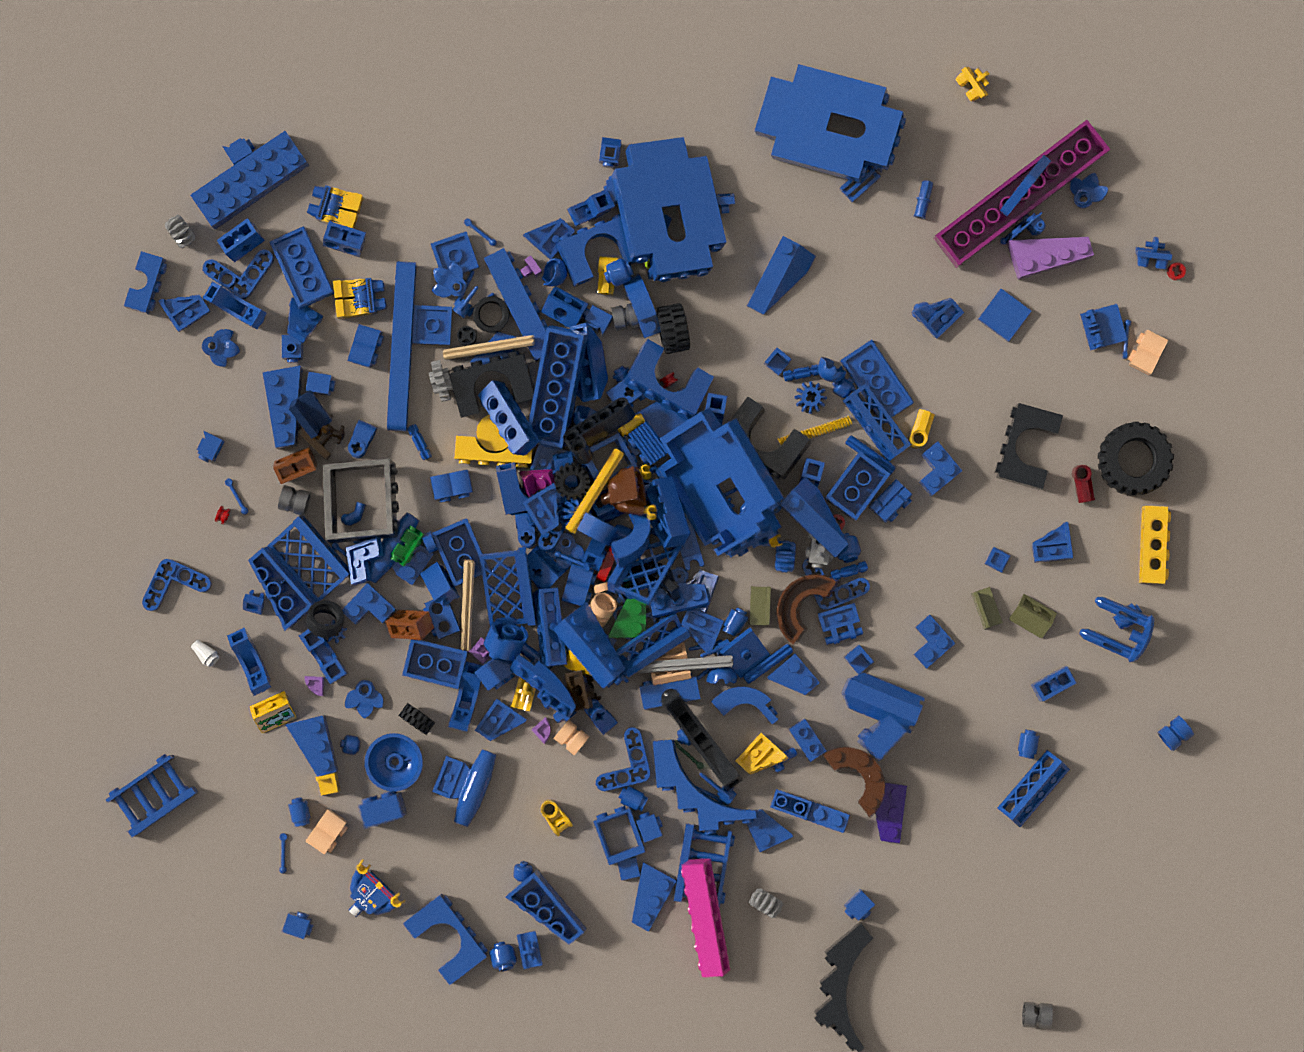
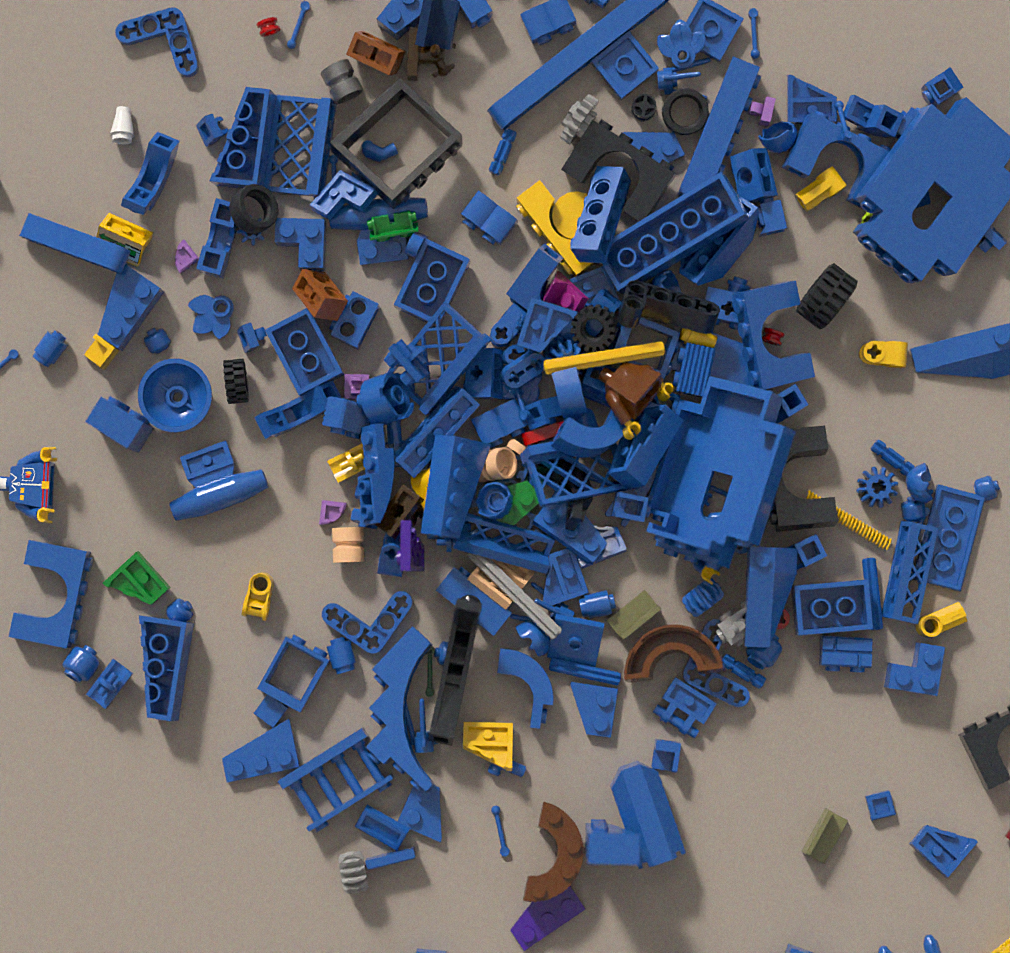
camera: 50 degrees right, 0 degrees up
(251, 742) = (75, 243): none -> blue beam
(327, 831) = (54, 391): light nougat brick -> none
(362, 435) = (461, 93): blue piece -> none
(397, 688) = (250, 337): none -> blue tile
(439, 584) = (383, 289): blue hinge -> none
(467, 605) = (387, 333): tan axle -> none
(483, 879) = (138, 579): none -> green wing
(489, 347) = (652, 137): tan axle -> none
(495, 604) = (410, 359): none -> blue hips
(499, 720) = (303, 461): blue wing -> none
(559, 543) = (521, 364): none -> blue beam
(567, 221) = (839, 105): none -> blue hinge
(608, 702) = (412, 549): none -> dark purple wing
(618, 272) = (834, 196): blue head -> none
(621, 628) = (494, 500): none -> blue hair
(624, 317) = (797, 242): flat silver wheel -> none
(642, 306) = (822, 247): blue arch -> none
(649, 826) = (328, 694): blue brick -> none
(680, 571) = (599, 508): blue plate -> none
(702, 545) = (642, 510): none -> blue window
(705, 917) = (287, 826): dark pink brick -> none
(738, 321) = (889, 353): none -> yellow piece
(754, 863) = (382, 827): none -> blue tile
(775, 877) = (390, 858): none -> blue tile
(777, 361) = (883, 425): blue panel -> none
(803, 787) = (504, 851): none -> blue hinge
(807, 740) = (544, 774): blue brick -> none
(810, 811) = (479, 837): blue slope -> none
(867, 333) = (986, 488): none -> blue piece
(937, 641) = (749, 817): blue plate -> none
(1033, 616) = (856, 888): olive panel -> none

